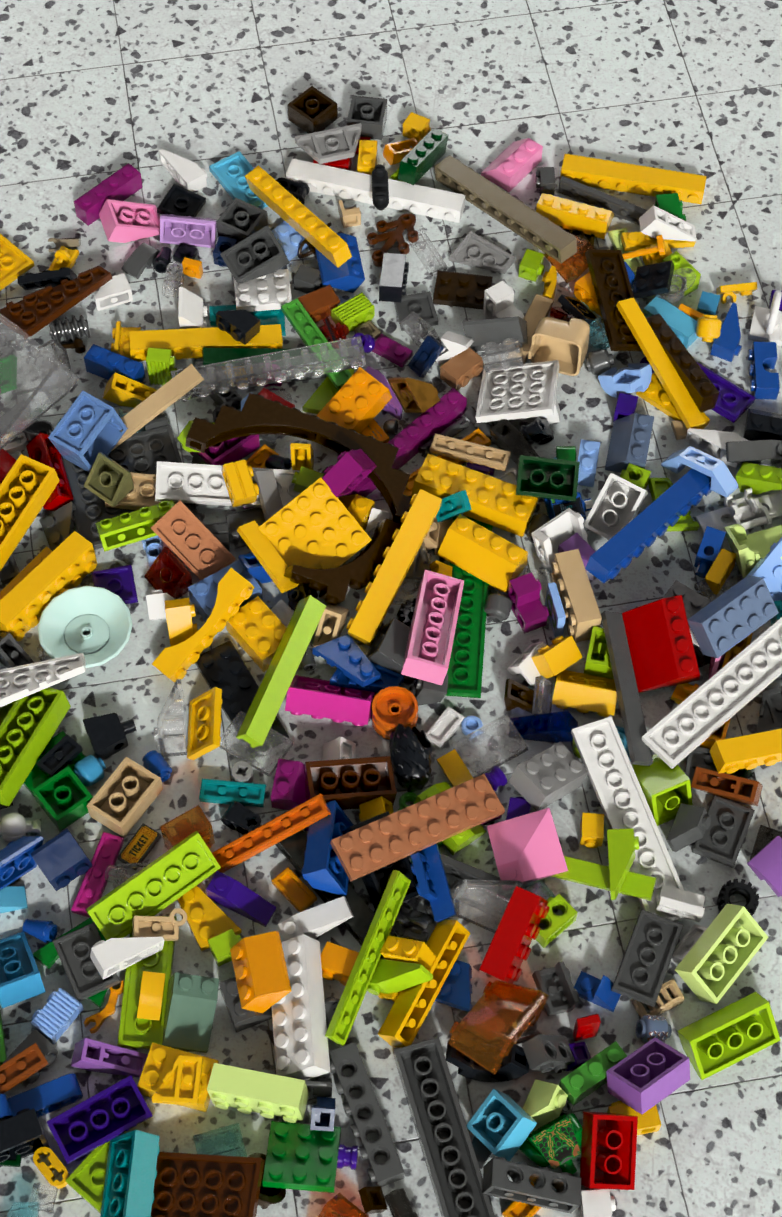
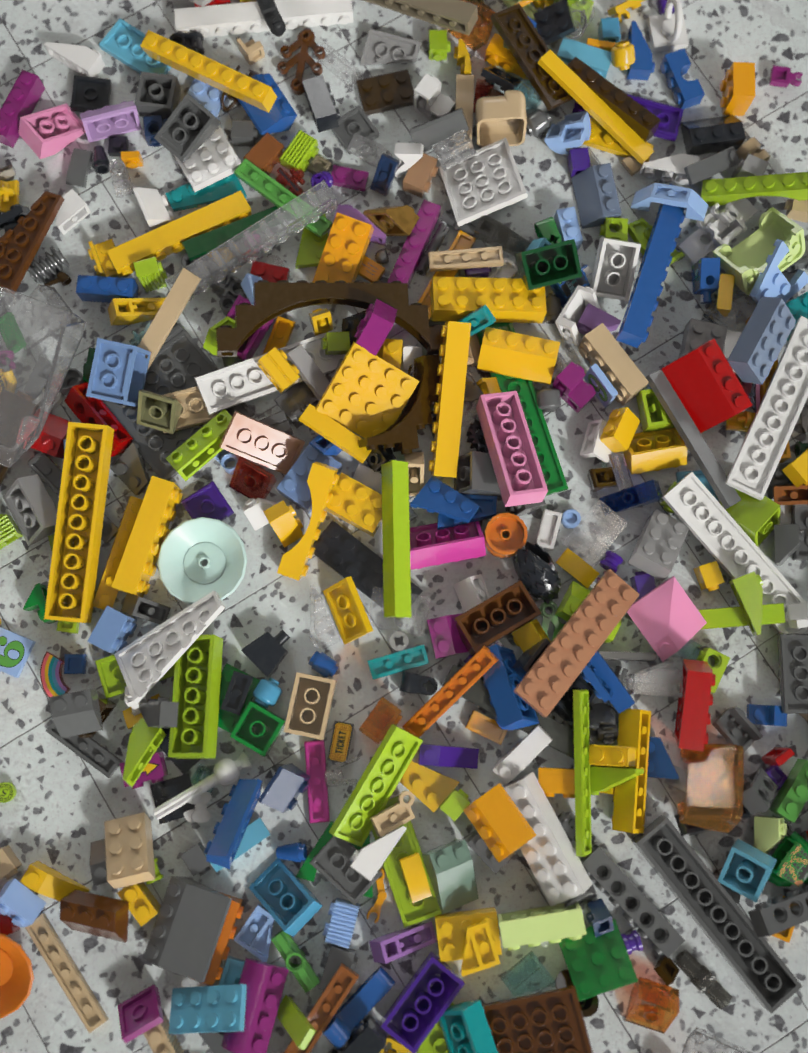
camera: 25 degrees left, 20 degrees up
(238, 324) = (204, 206): black slope -> none
(278, 462) = (299, 332): black cone -> none
(538, 431) = (514, 215): black piece -> none

